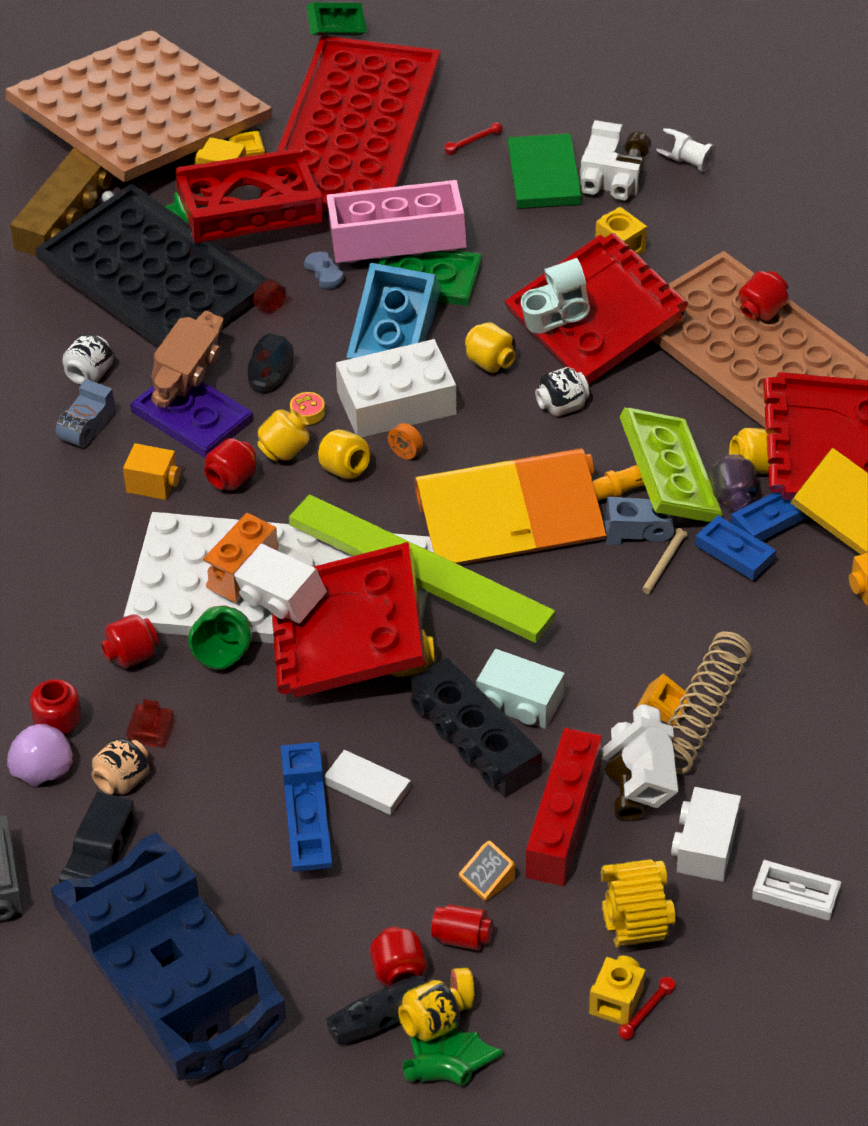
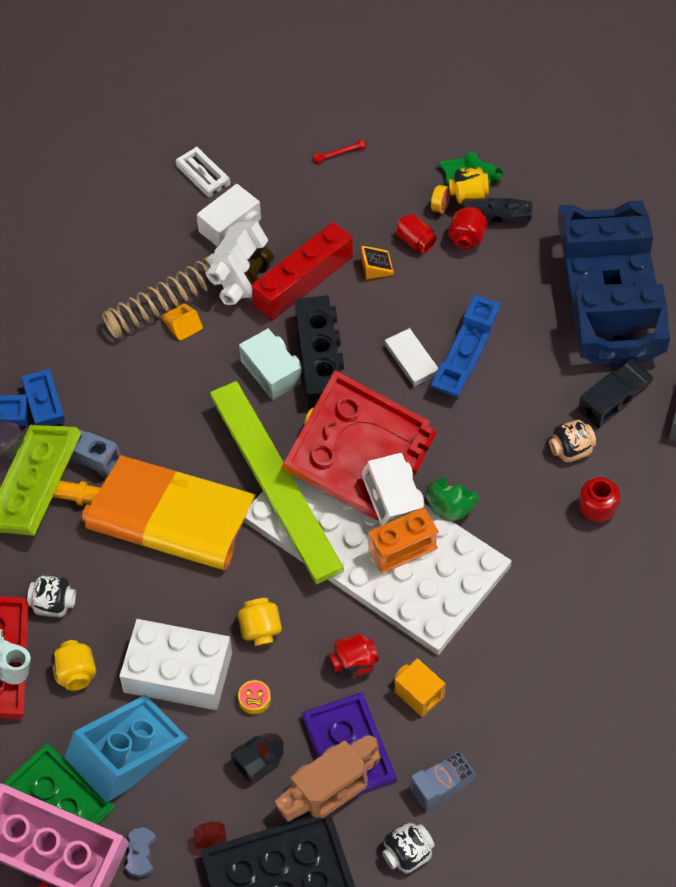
camera: 150 degrees left, 10 degrees up
(39, 755) = (629, 474): lavender hair -> none
(129, 641) = (518, 531): red head -> none
(150, 724) = (534, 469): clear red tile -> none
(283, 435) = (296, 660): yellow head -> none
(405, 441) = (203, 613): orange tile -> none
(617, 990) = (352, 158): yellow brick -> none
(637, 902) = (308, 184): yellow brick -> none
(663, 562) = (103, 417): tan piece -> none

